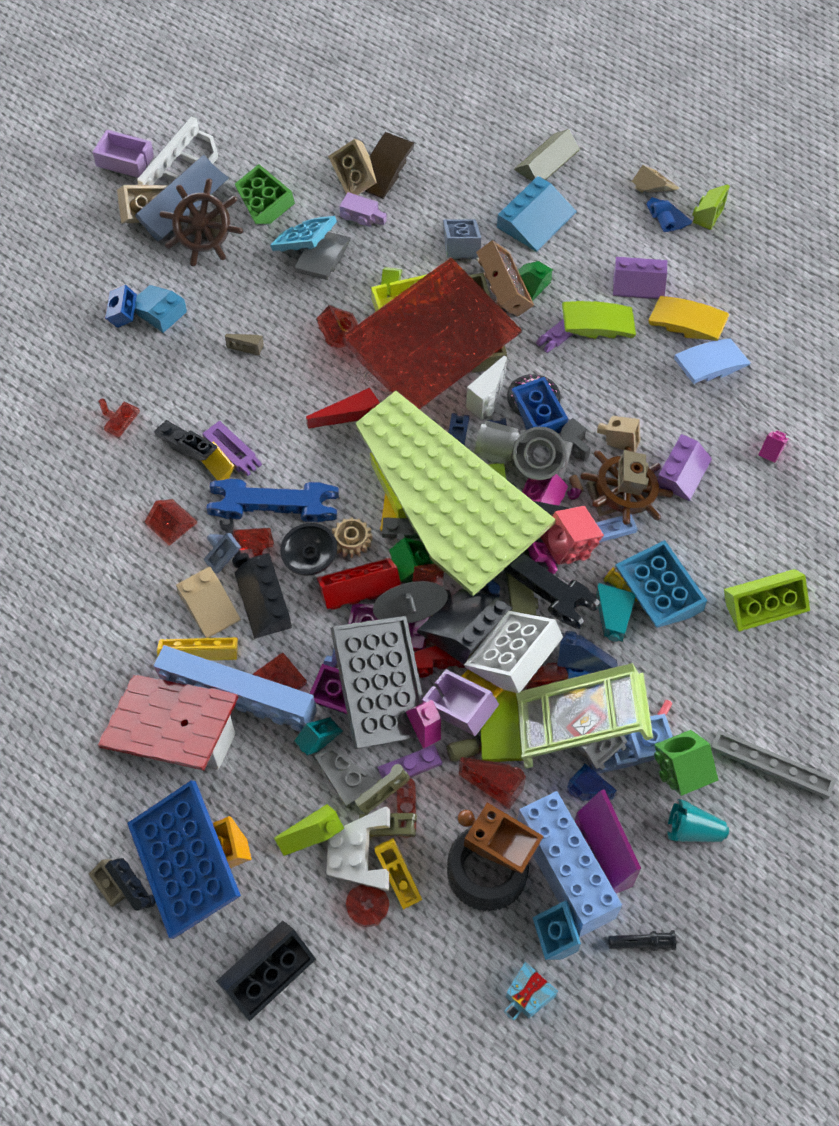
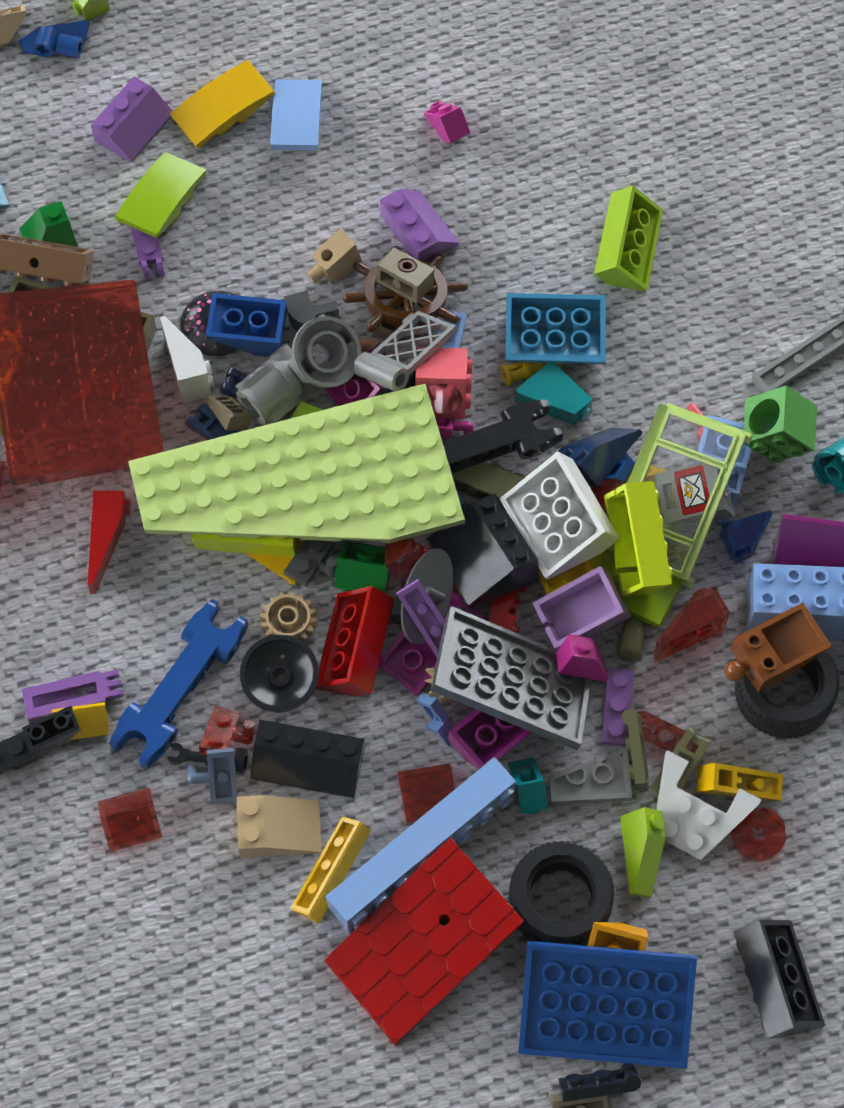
camera: 60 degrees left, 5 degrees up
(244, 765) = (569, 858): none -> black tyre
(393, 599) = (423, 613): none -> medium lavender plate
(470, 431) = (229, 412): none -> dark tan slope
(524, 705) = (641, 544): none -> neon yellow piece
(551, 494) = (388, 369): none -> light grey piece

